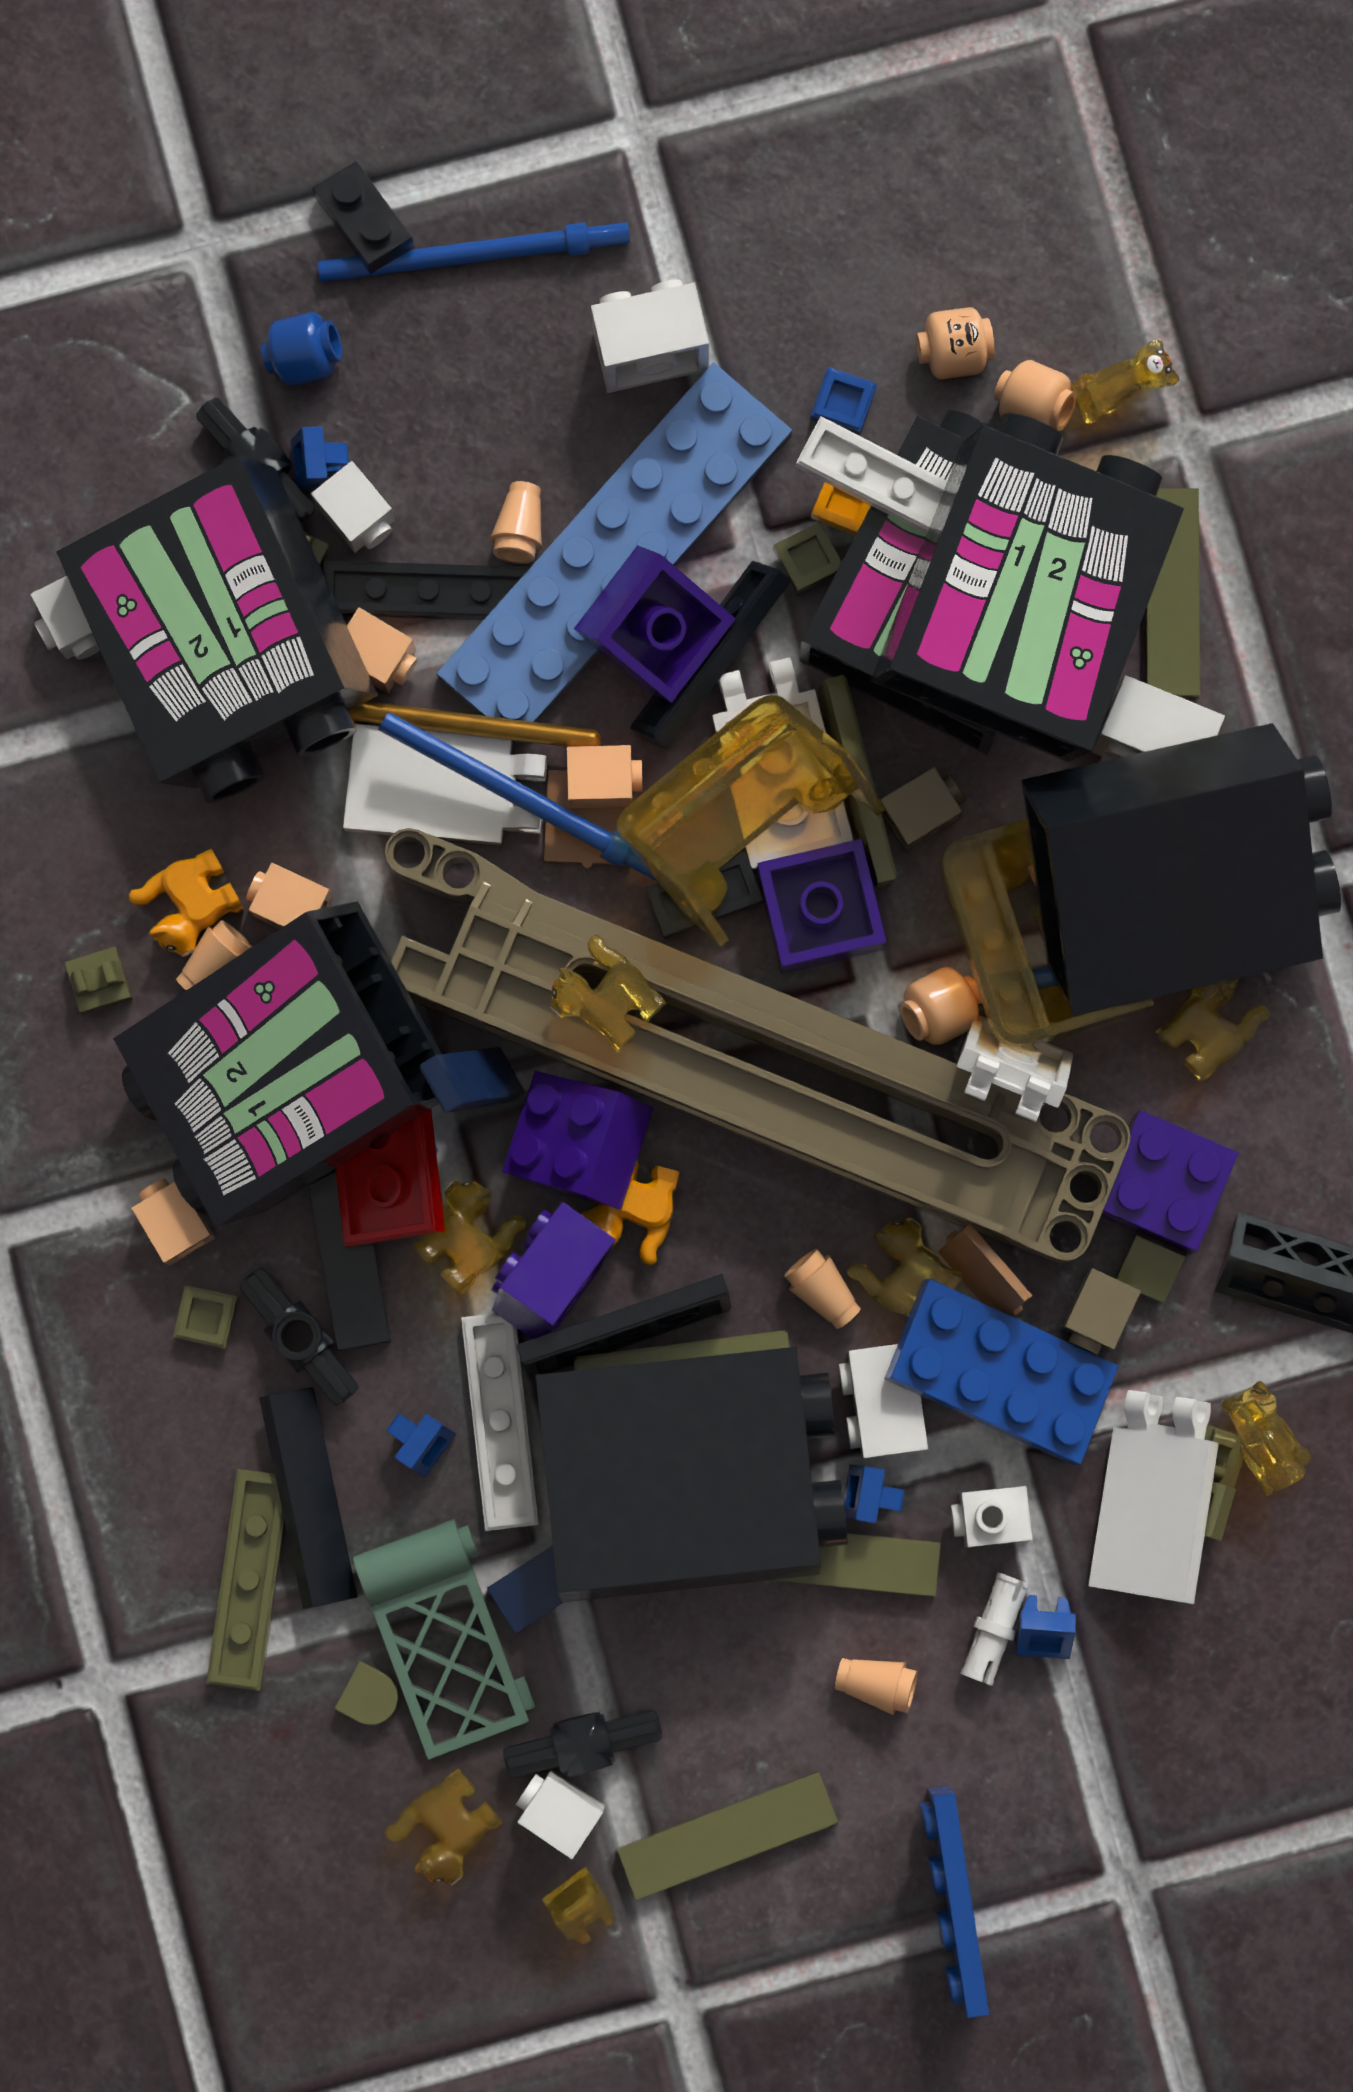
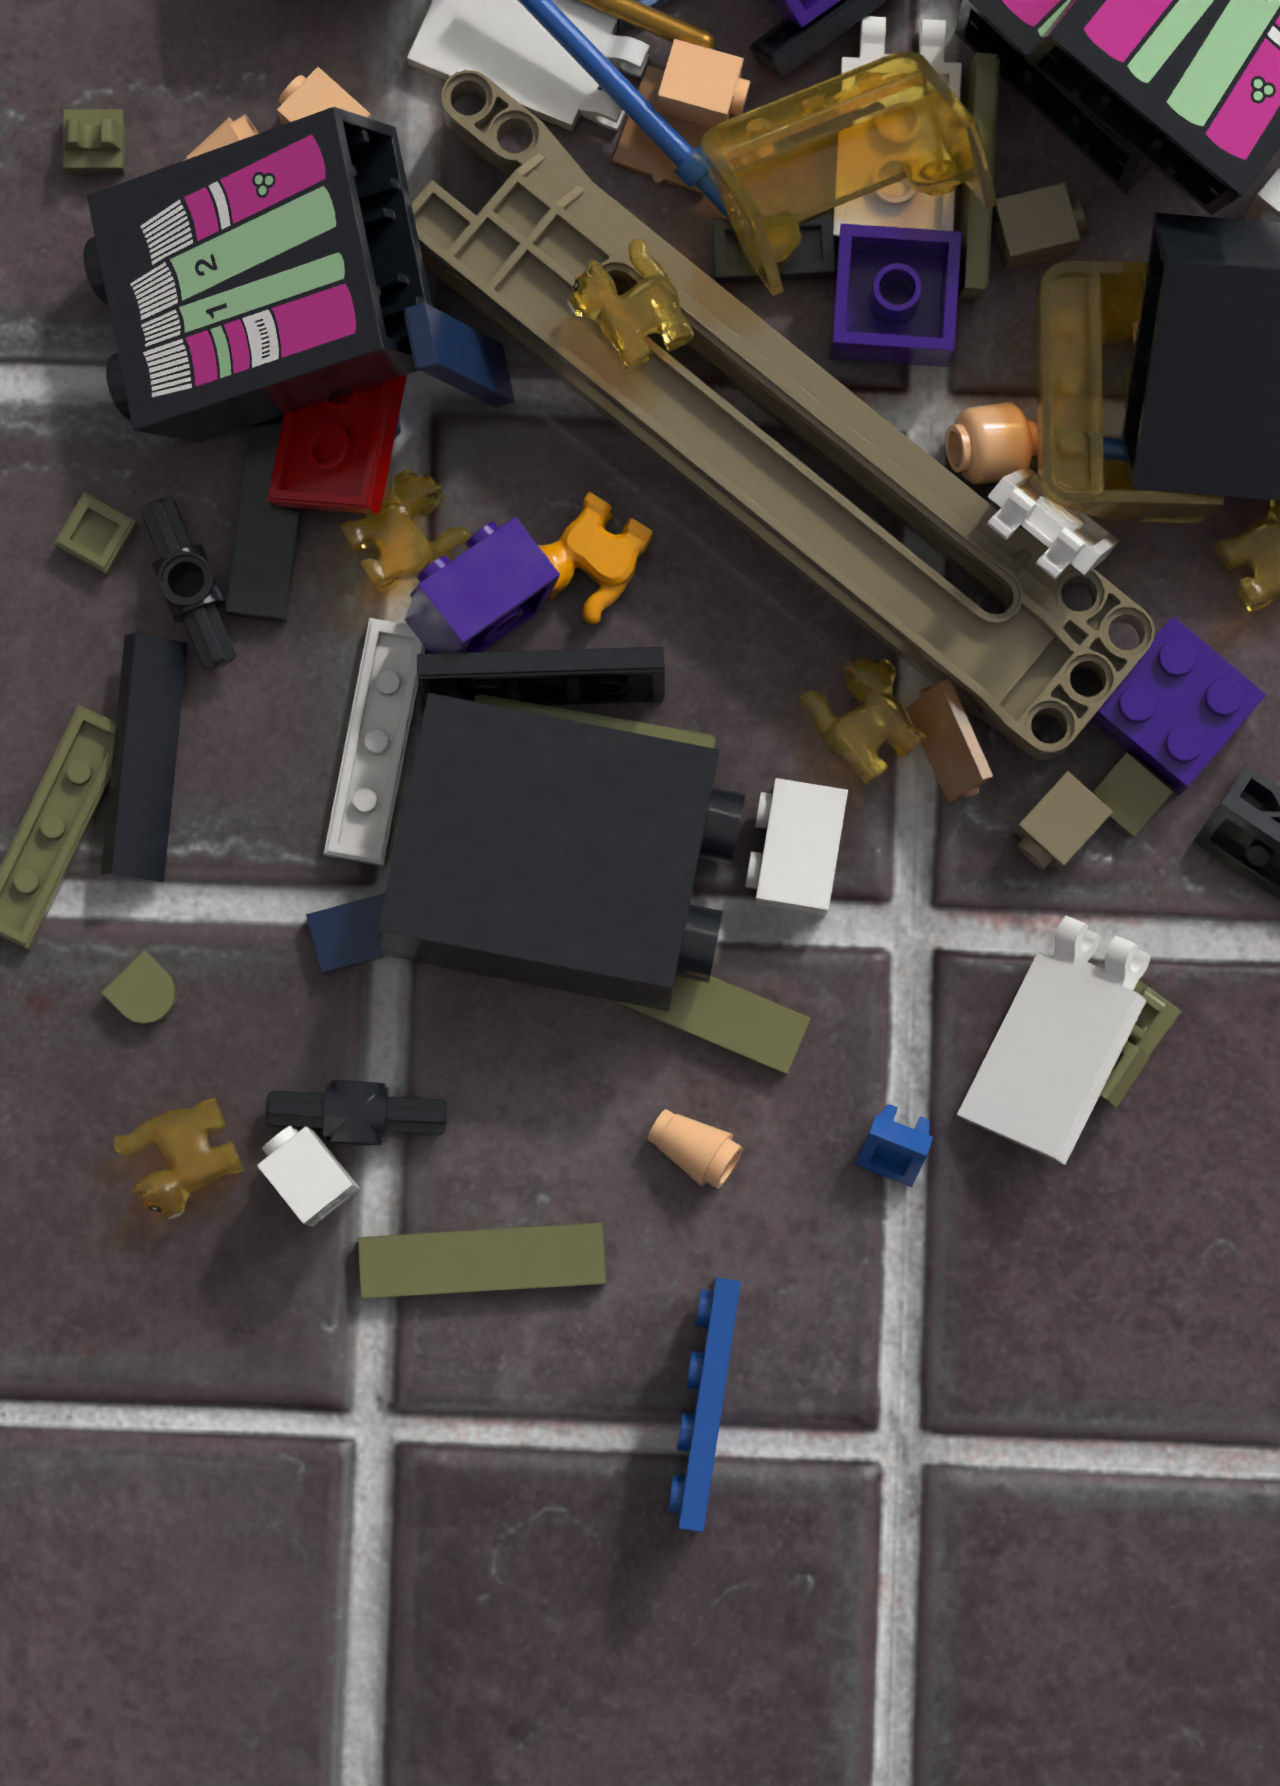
camera: 15 degrees right, 0 degrees up
(171, 1222) = (90, 420): light nougat brick -> none
(198, 905) = (225, 93): light orange animal -> none
(421, 1442) = (284, 737): blue tile -> none
(427, 1567) = (241, 871): sand green piece -> none
(577, 1139) = (554, 462): dark purple brick -> none
(577, 1905) = (296, 1283): clear yellow tile -> none
(822, 1288) = (769, 706): light nougat cone -> none
(866, 1494) = (748, 941): blue tile -> none
(992, 1516) = (876, 1006): white brick -> none
(995, 1628) = (841, 1128): white pin -> none
(1001, 1372) = (934, 853): blue plate -> none
(1266, 1439) = (1199, 1014): clear yellow animal -> none

